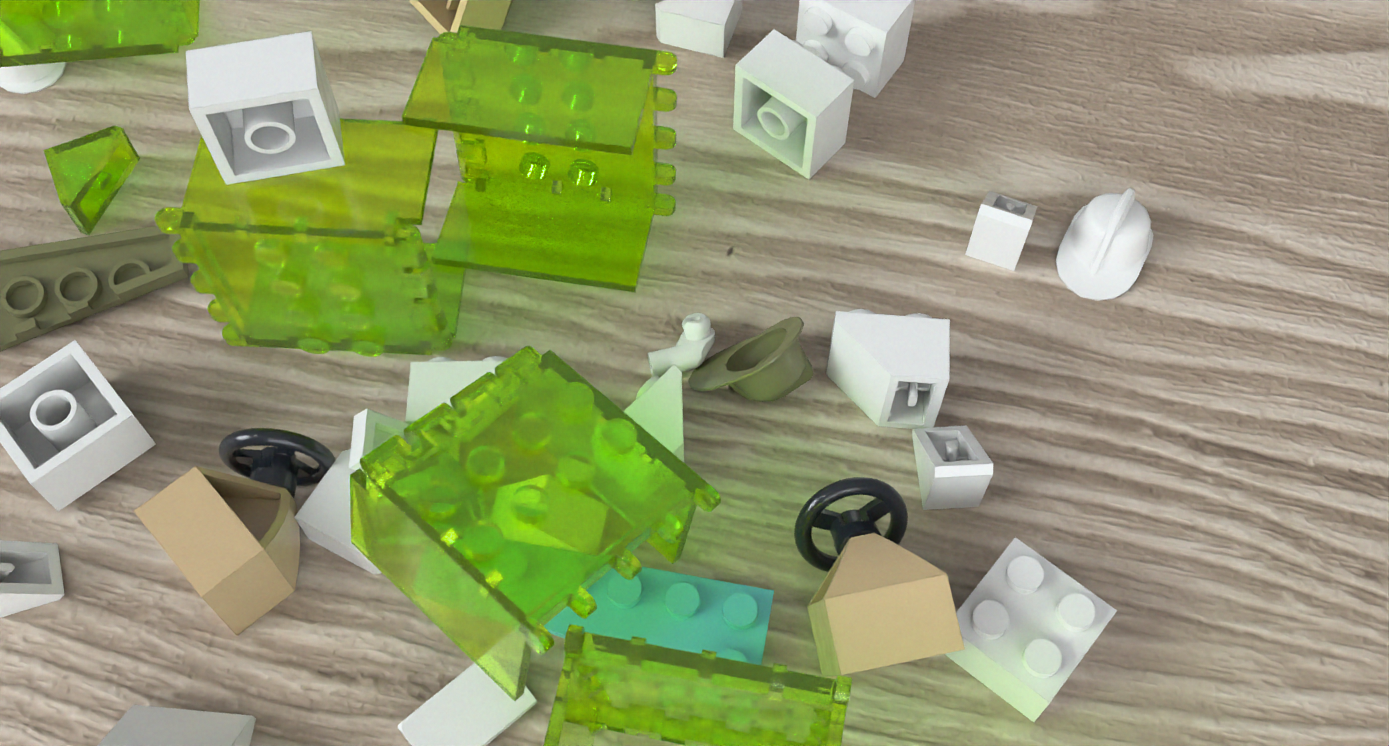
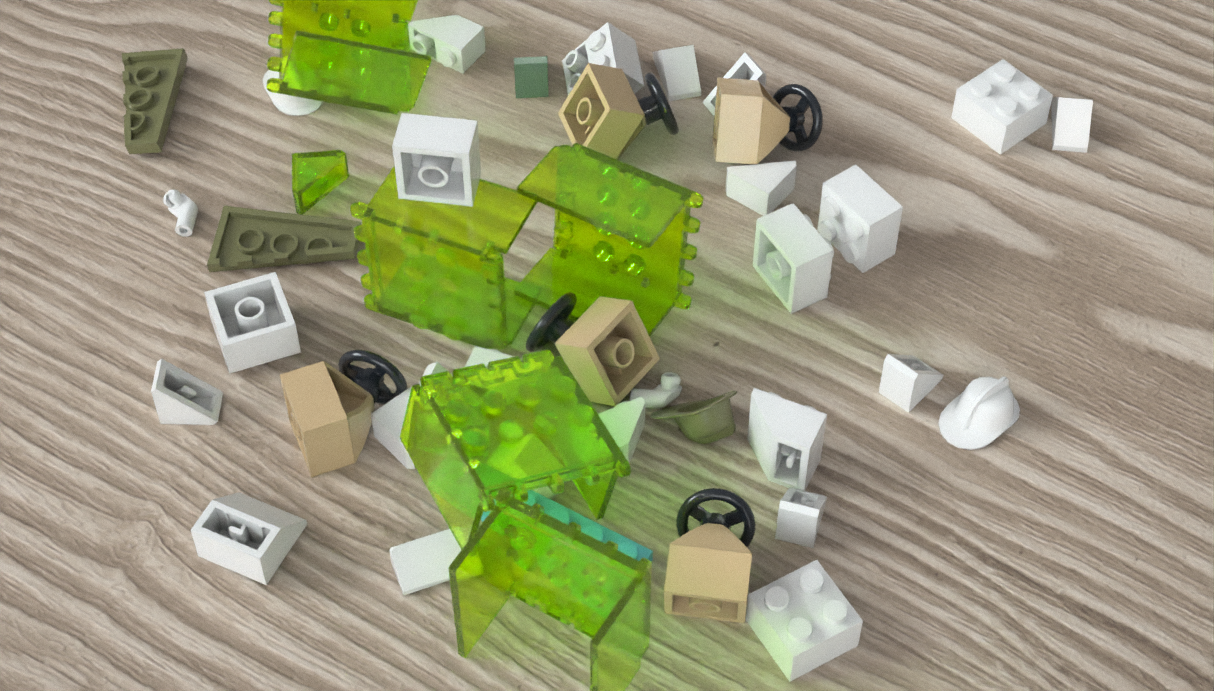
camera: 20 degrees right, 10 degrees down
(593, 313) = (602, 349): none -> tan piece

